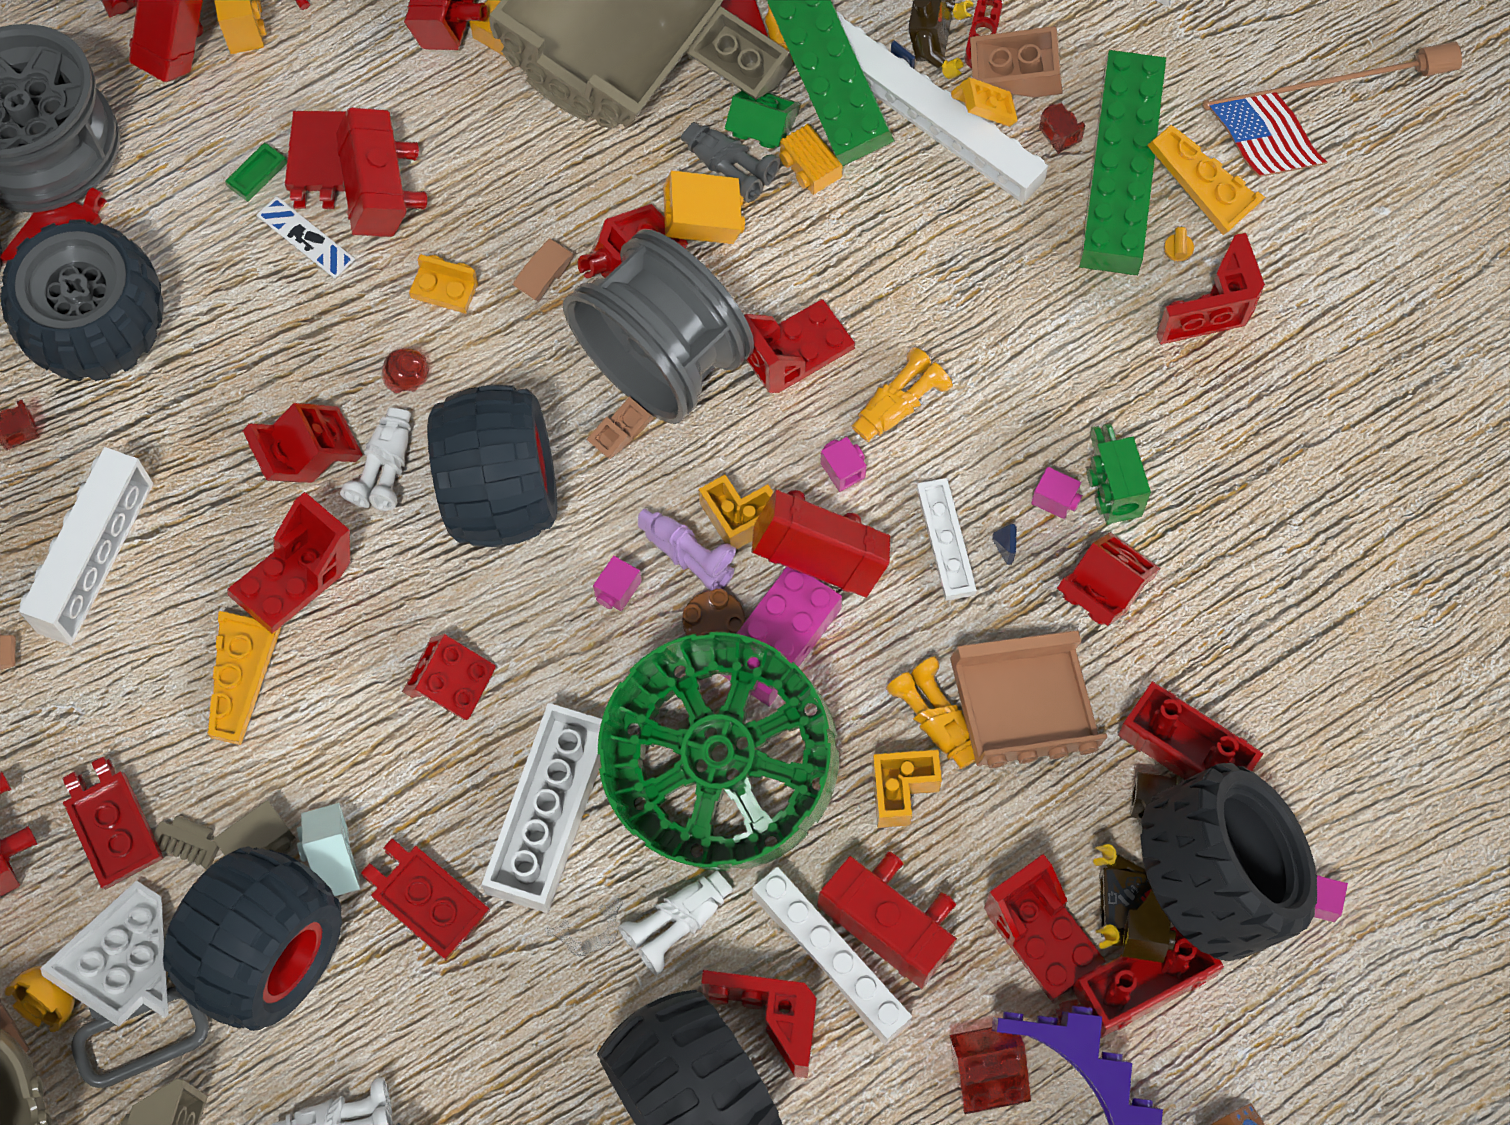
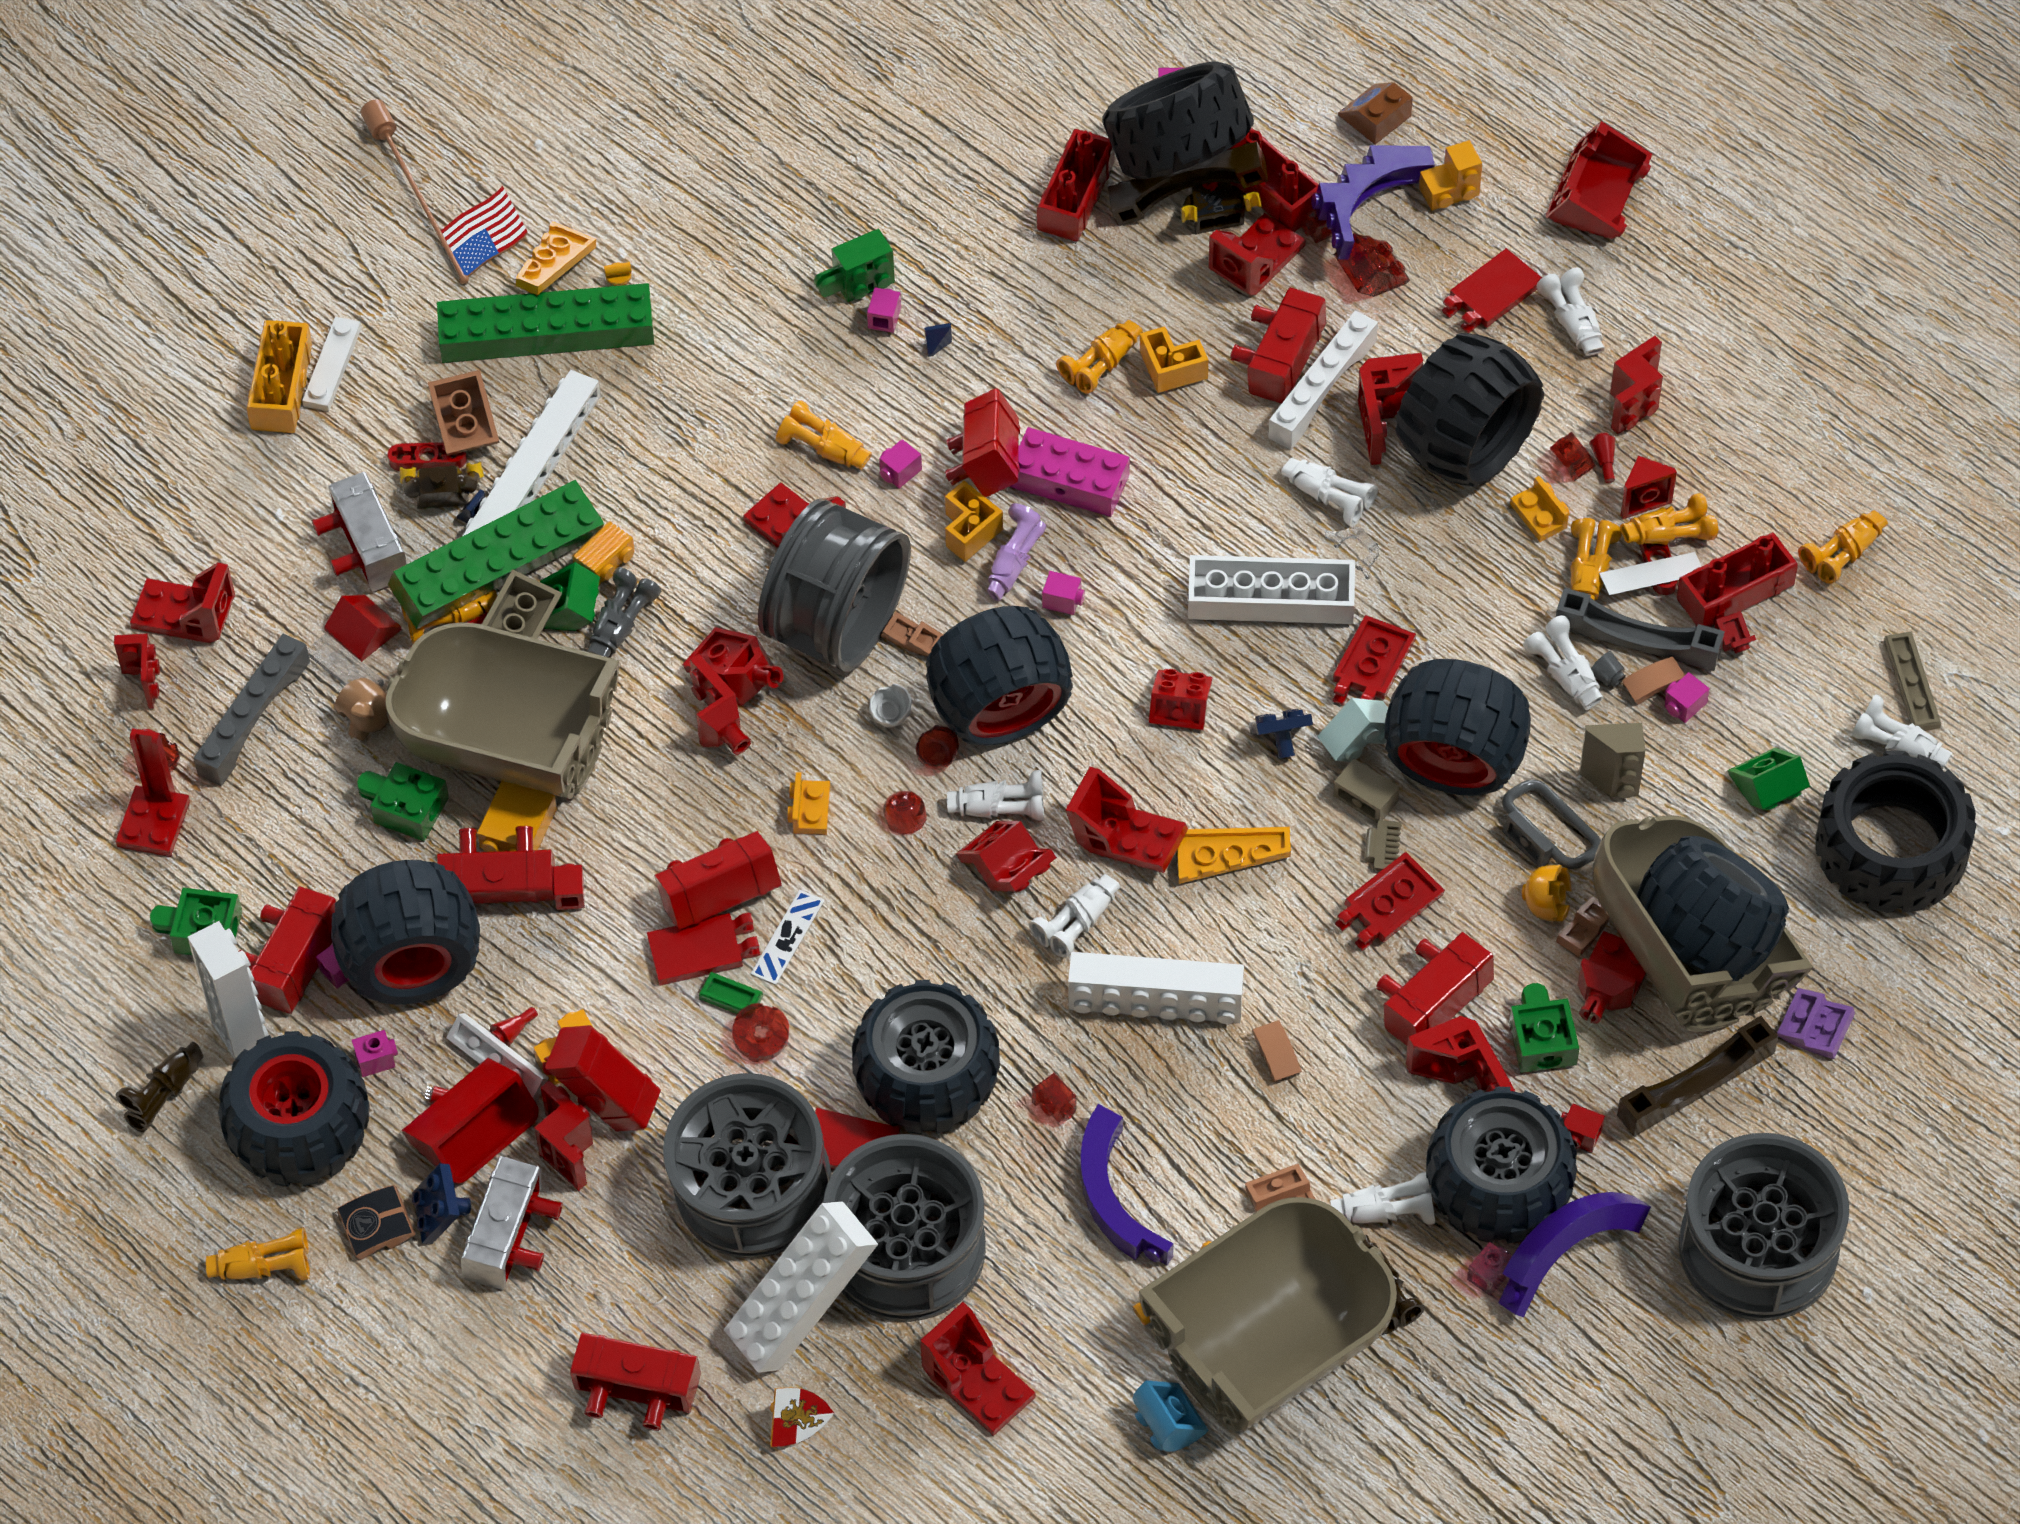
camera: 105 degrees left, 10 degrees down
(117, 958) = (1501, 838): white wing -> none
(206, 196) = (755, 1047): none -> clear red plate
(221, 510) = (1085, 906): none -> white piece
(362, 764) = (1281, 728): none -> dark blue plate
(420, 51) = (569, 886): none -> red brick
(534, 376) = (890, 705): none -> white hair
(542, 268) = (774, 730): nougat slope -> none
(576, 221) = (720, 720): none -> red plate
(638, 702) = (1221, 401): green wheel -> none
(702, 207) = (681, 617): light orange brick -> none
(713, 613) = (1069, 524): dark orange dish -> none
(946, 539) = (945, 380): white plate -> none
(986, 101) = (514, 422): light orange bracket -> none
(1025, 699) = (1074, 296): nougat panel -> none
(1061, 127) = (520, 376): clear red brick -> none
(1108, 579) = (952, 259): red bracket -> none
(1226, 307) = (647, 216): red bracket -> none

